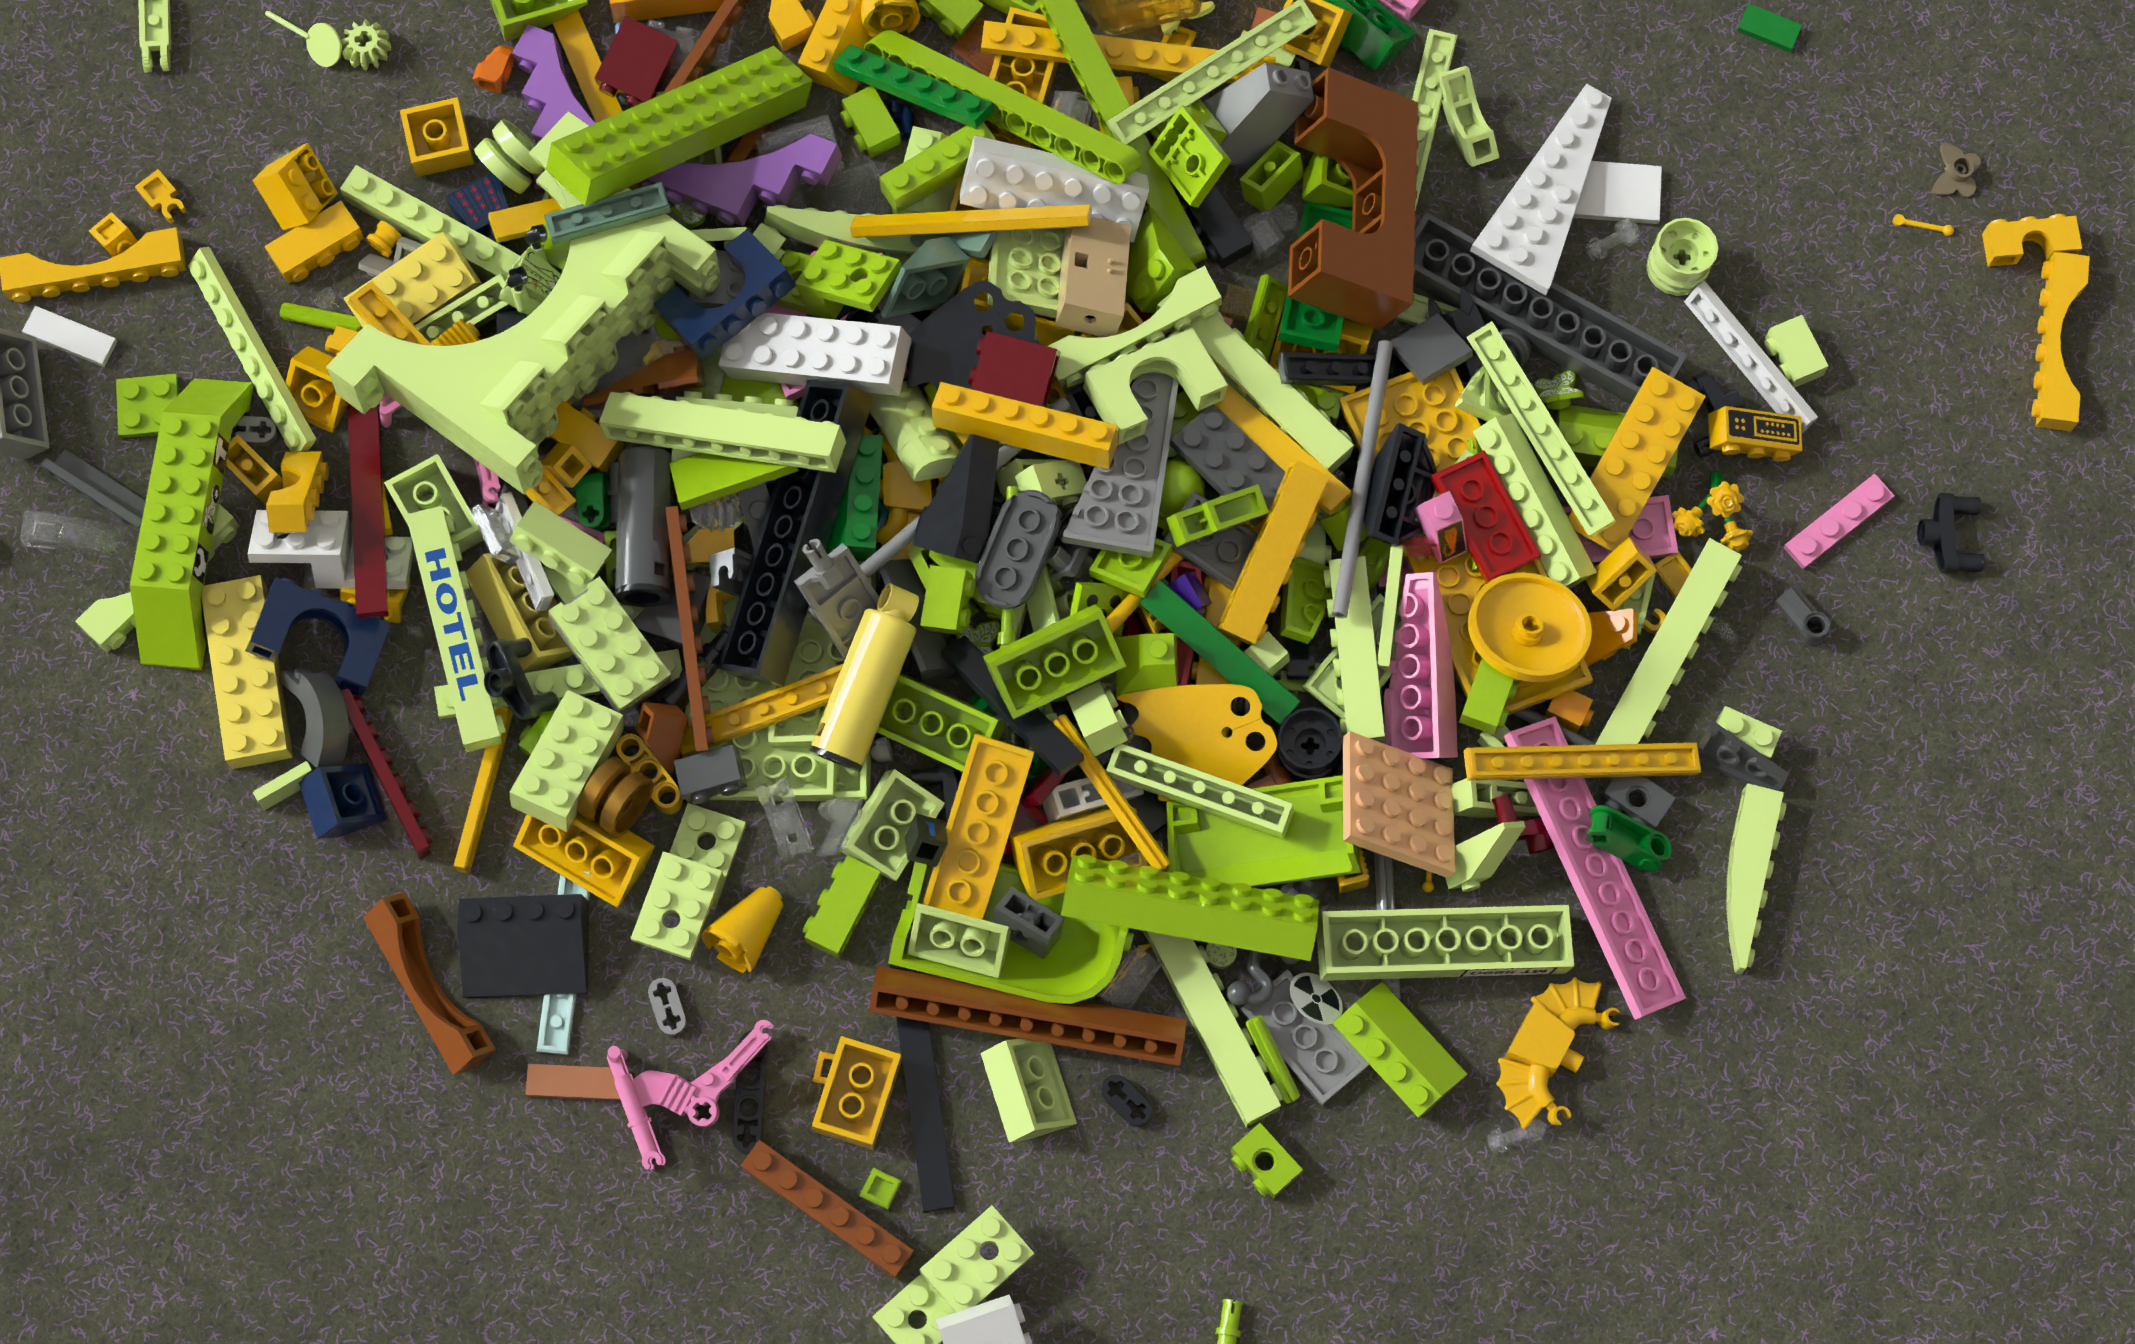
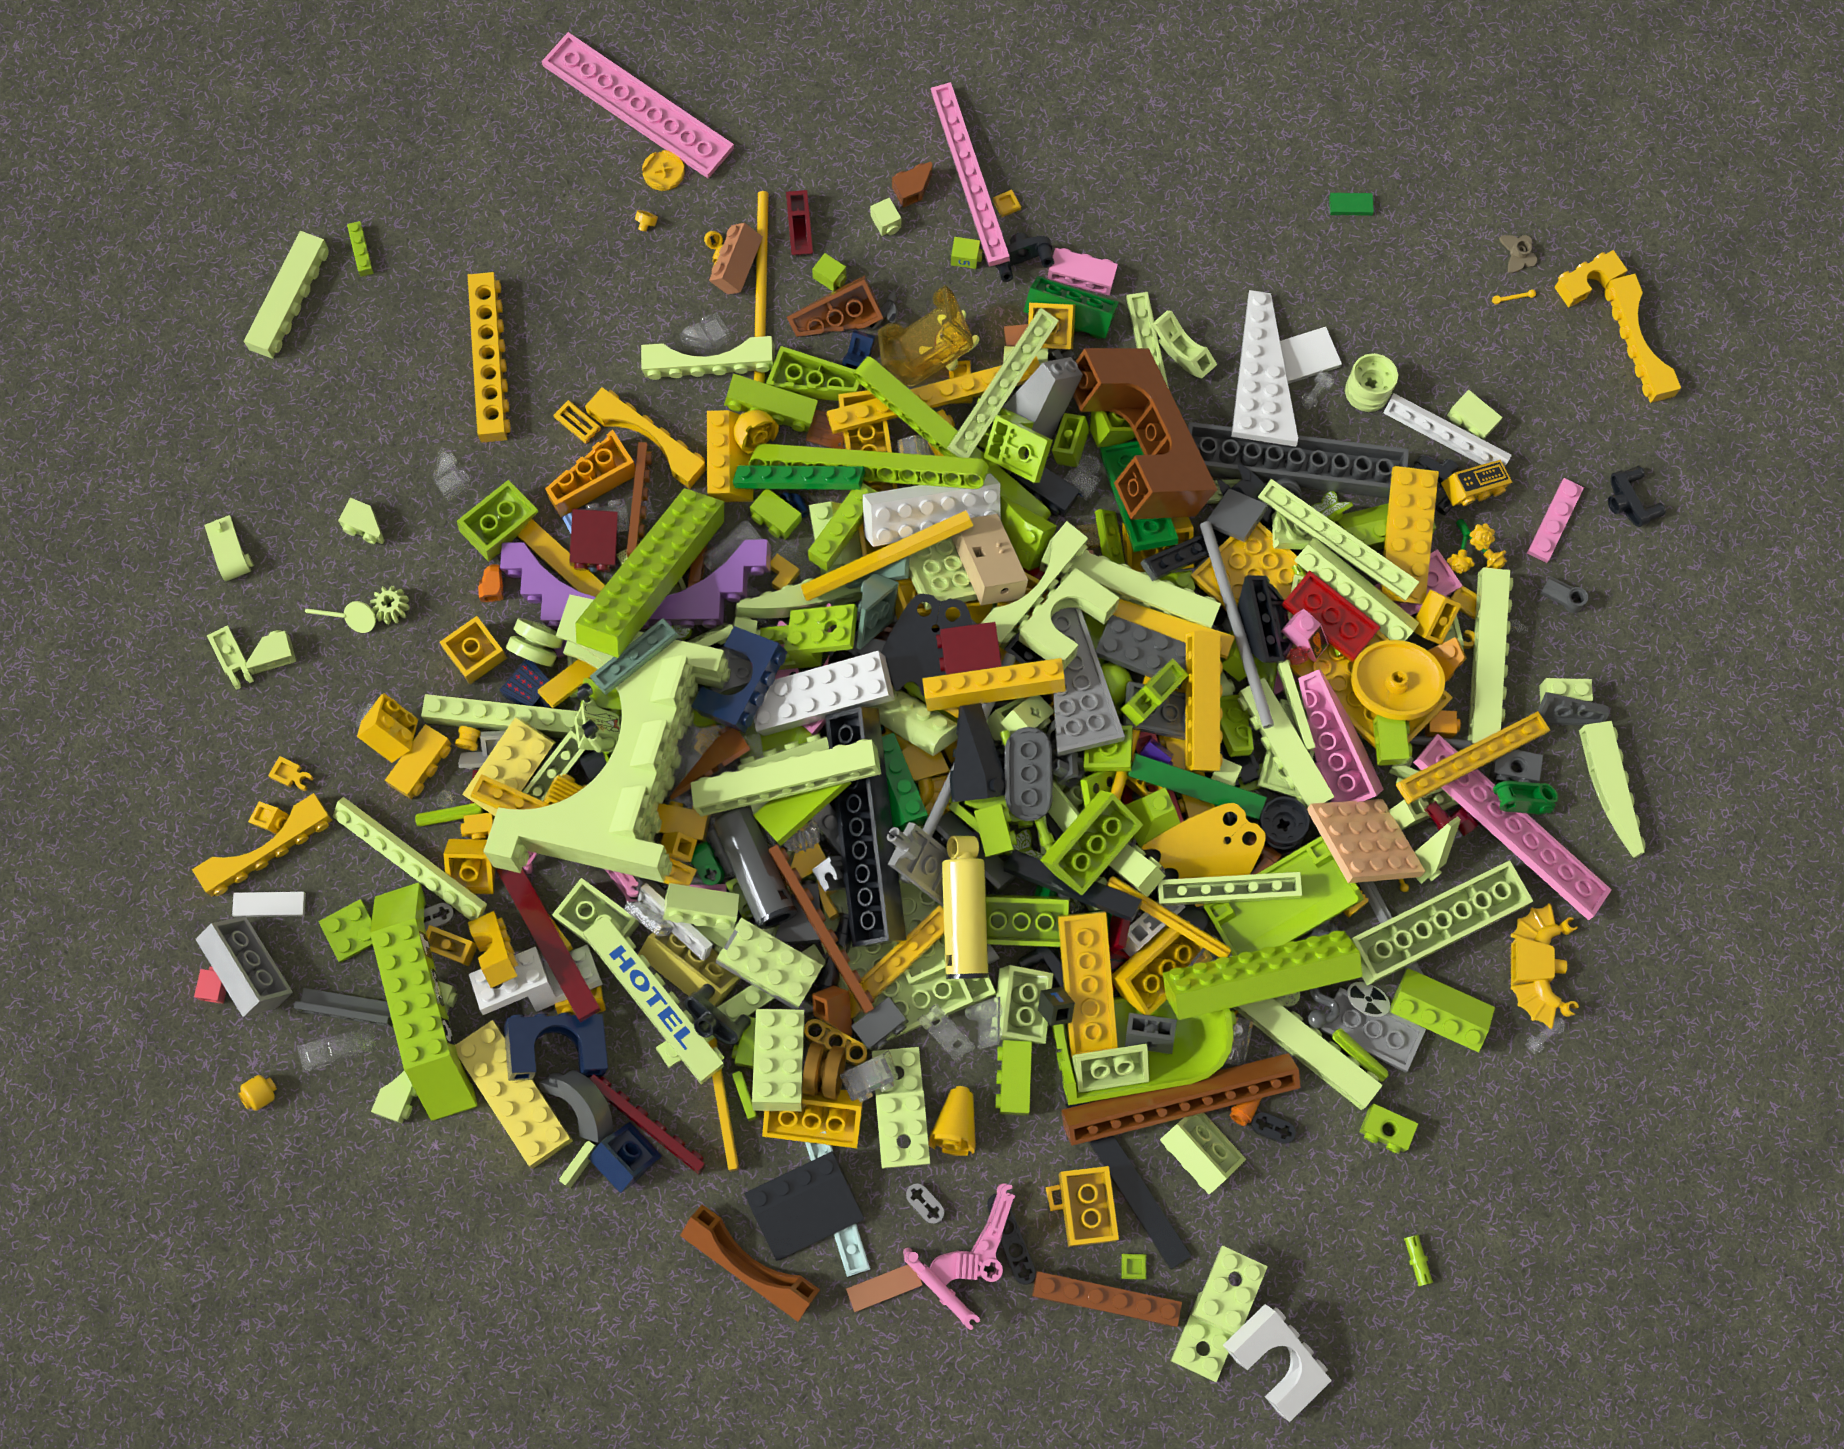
camera: 25 degrees left, 0 degrees up
(203, 45) = (271, 652): none -> yellowish green slope
(515, 767) = (744, 1096): none -> lime tile
(666, 825) = (869, 1076): none -> clear slope
(850, 194) = (786, 572): none -> yellow piece
(1100, 1065) = (1244, 1112): none -> orange cone

